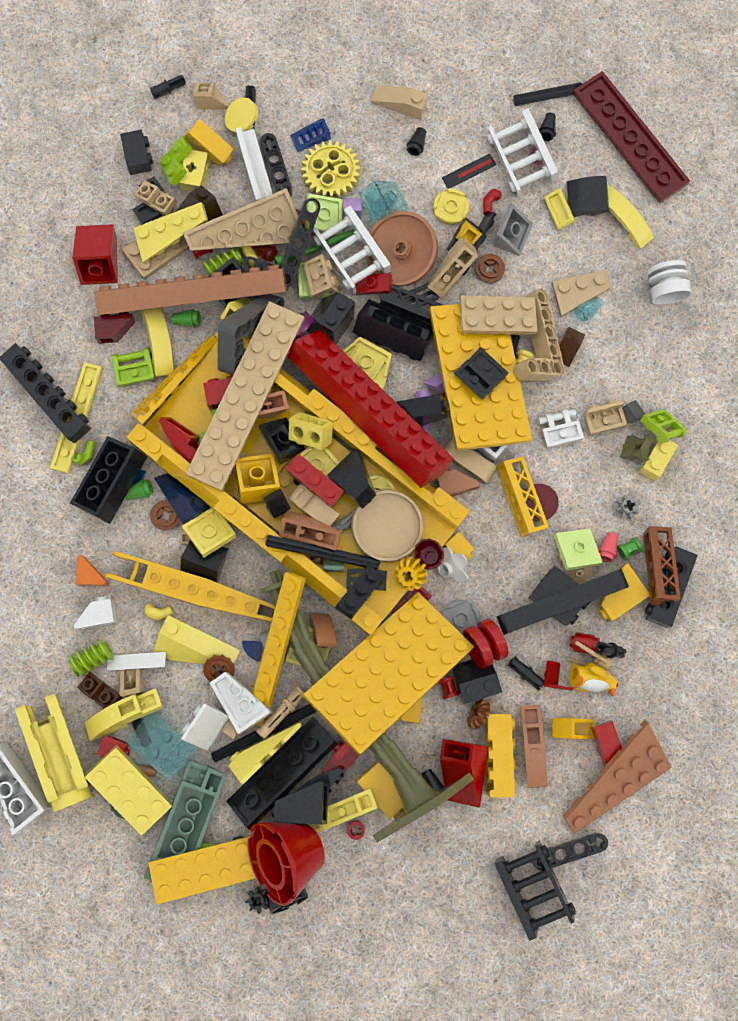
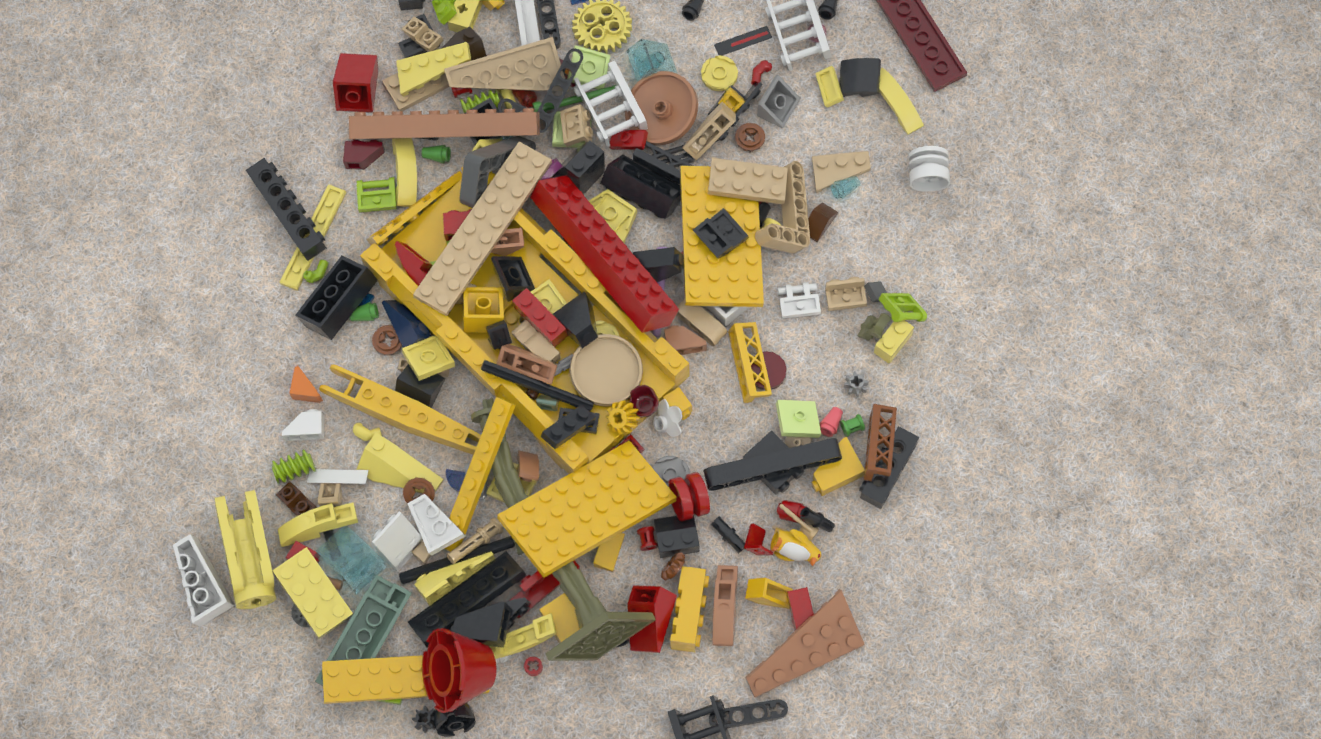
camera: 15 degrees right, 10 degrees down
(310, 431) = (542, 269): light yellow brick -> none
(355, 203) = (622, 62): lavender slope -> none
(435, 384) = (676, 242): lavender slope -> none

